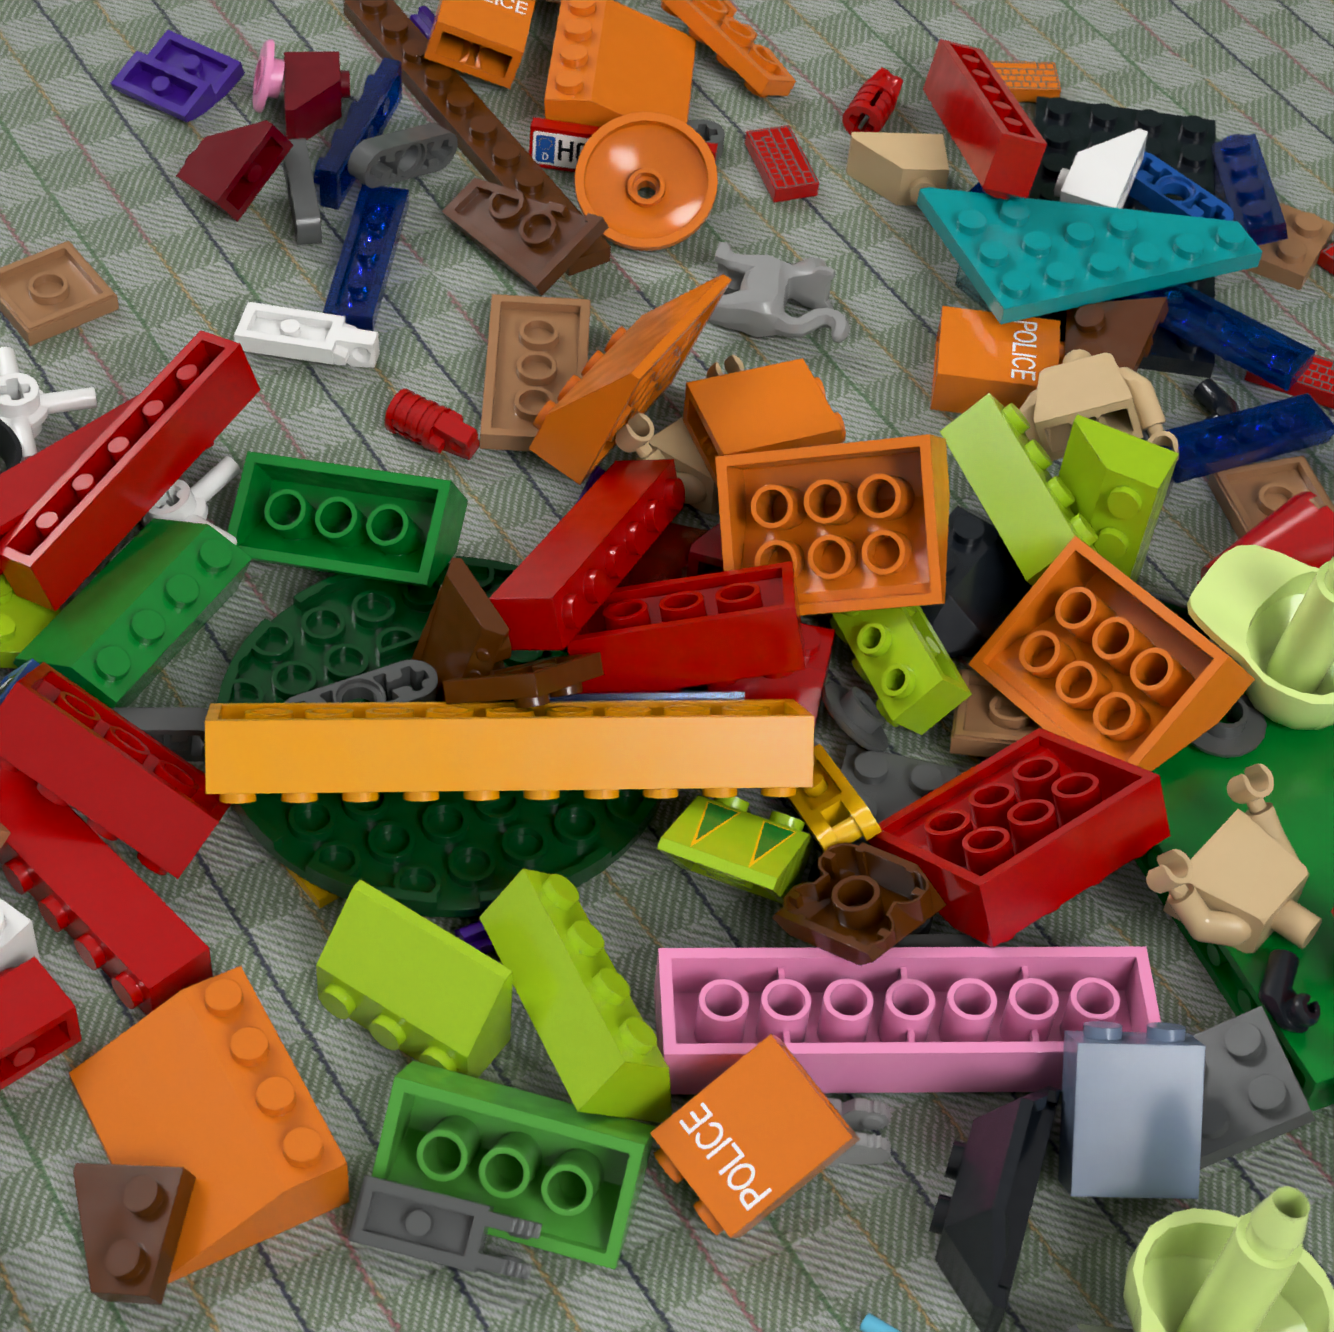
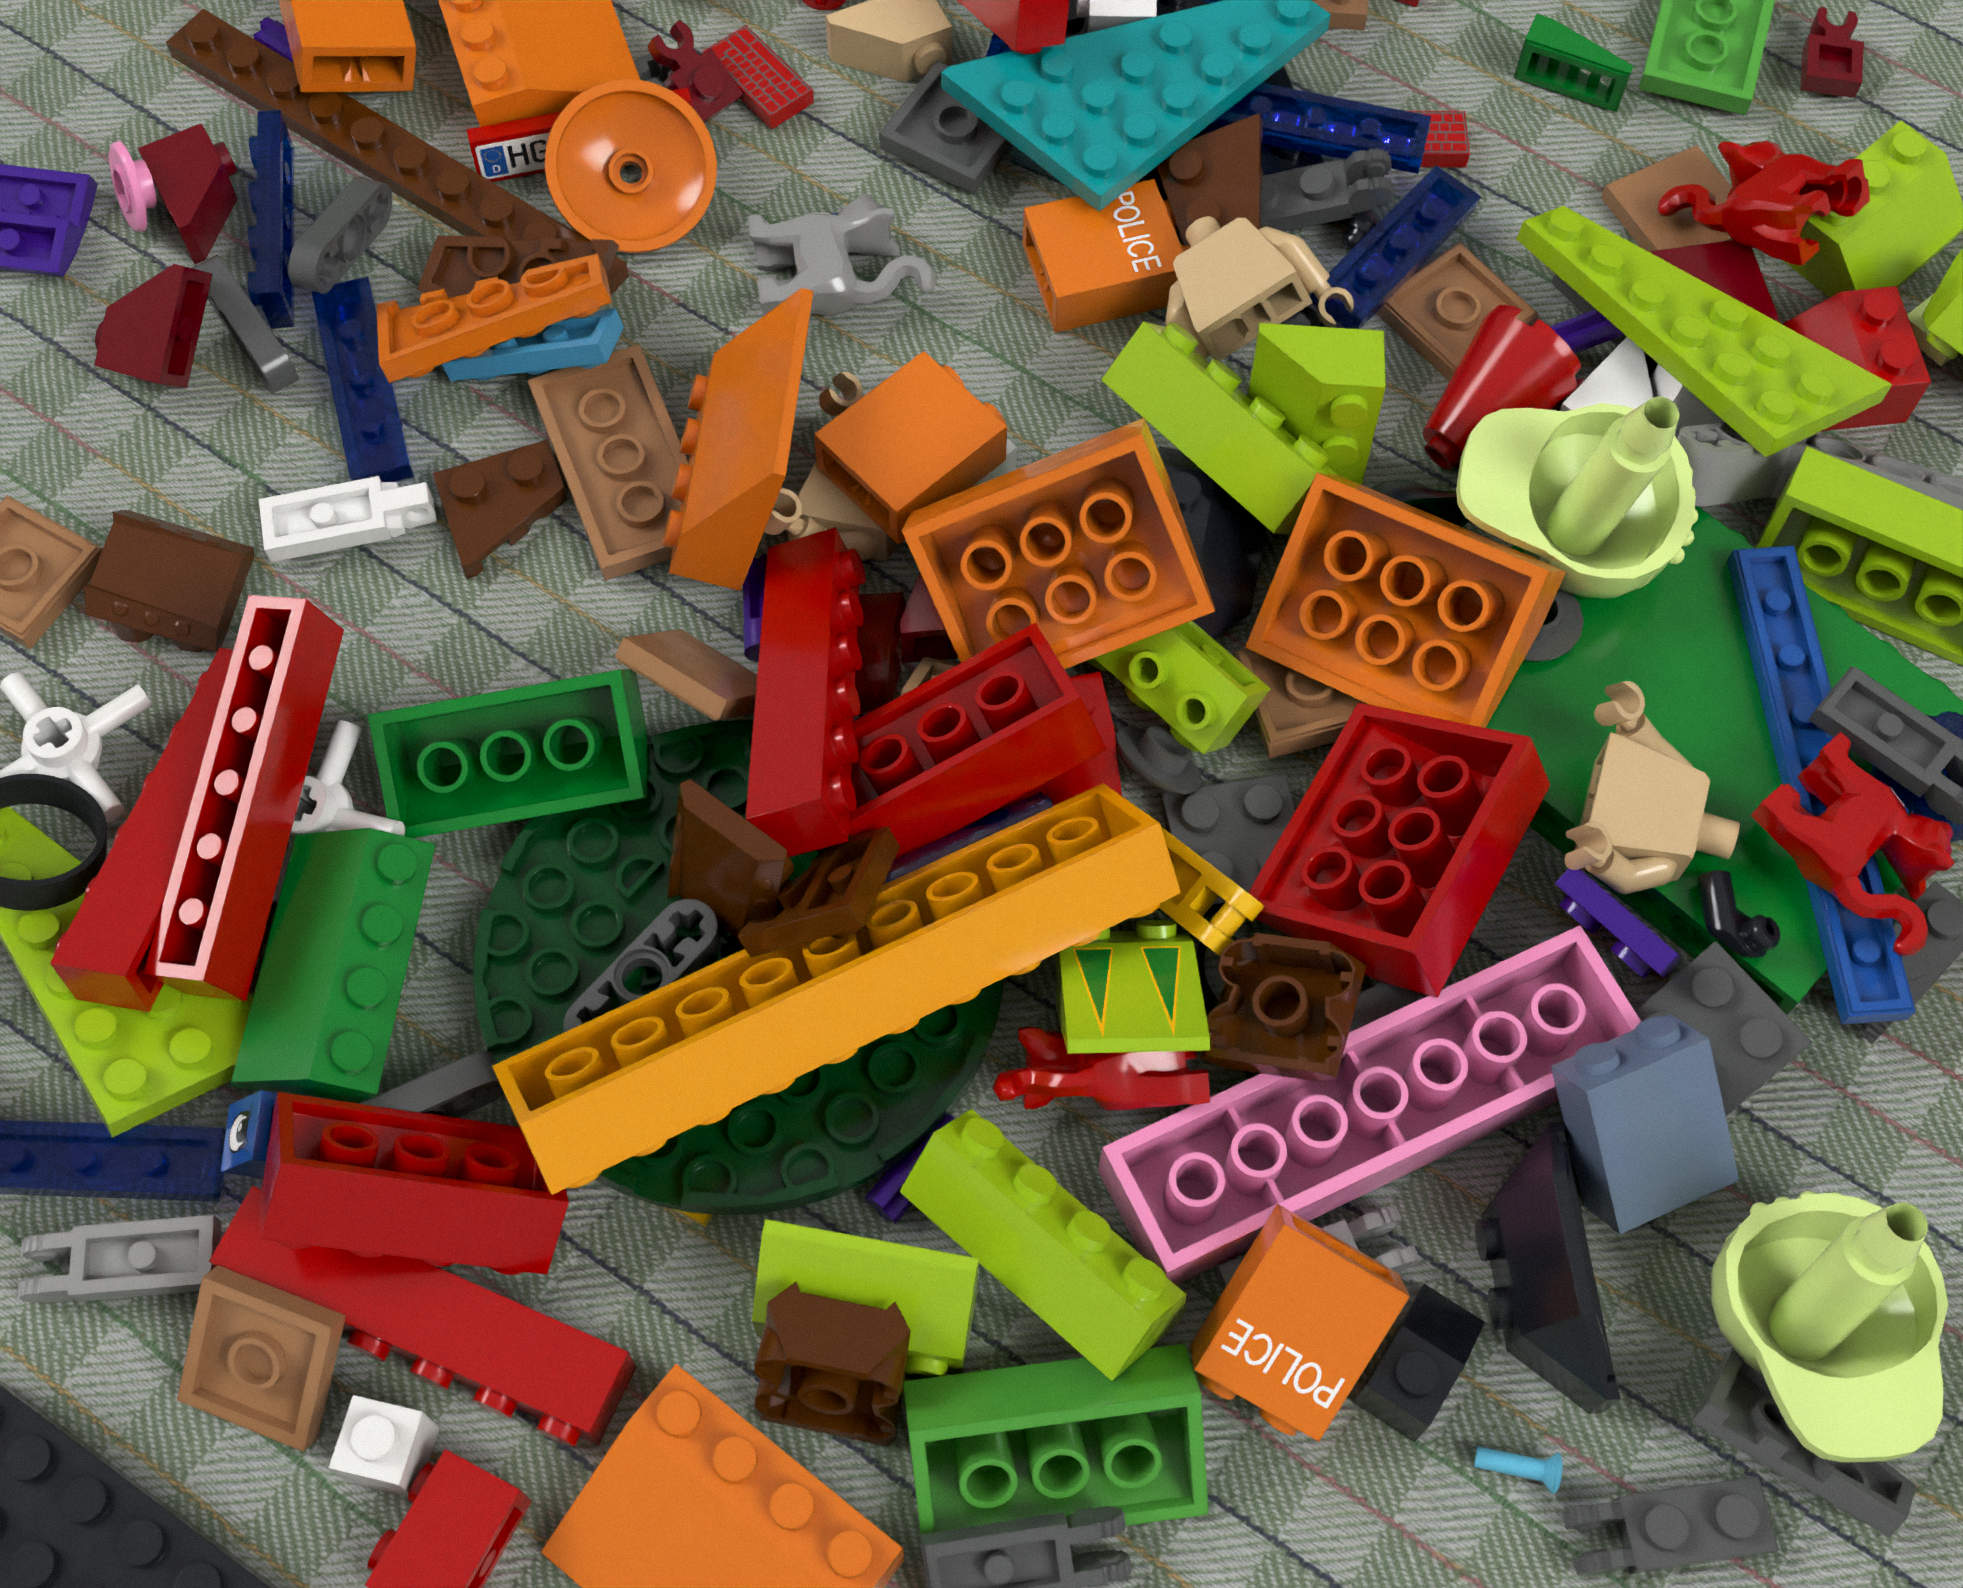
camera: 20 degrees left, 15 degrees up
(142, 327) = (167, 582): none -> reddish brown slope
(359, 1020) = (832, 1366): none -> reddish brown slope
(430, 366) = (498, 500): none -> reddish brown wing
(430, 425) = (539, 576): red hinge -> none
(492, 235) = (467, 325): none -> orange wing
(502, 512) = (691, 672): none -> medium nougat tile
(508, 272) = (564, 344): none -> dark azure plate
(690, 899) = (1109, 1079): none -> red animal
(737, 147) = (704, 74): none -> dark red plate
(847, 1227) = (1420, 1363): none -> black slope
(906, 247) = (943, 135): none -> dark grey plate
(1179, 963) = (1596, 908): none -> dark purple plate
(1203, 378) = (1323, 192): none -> dark grey hinge

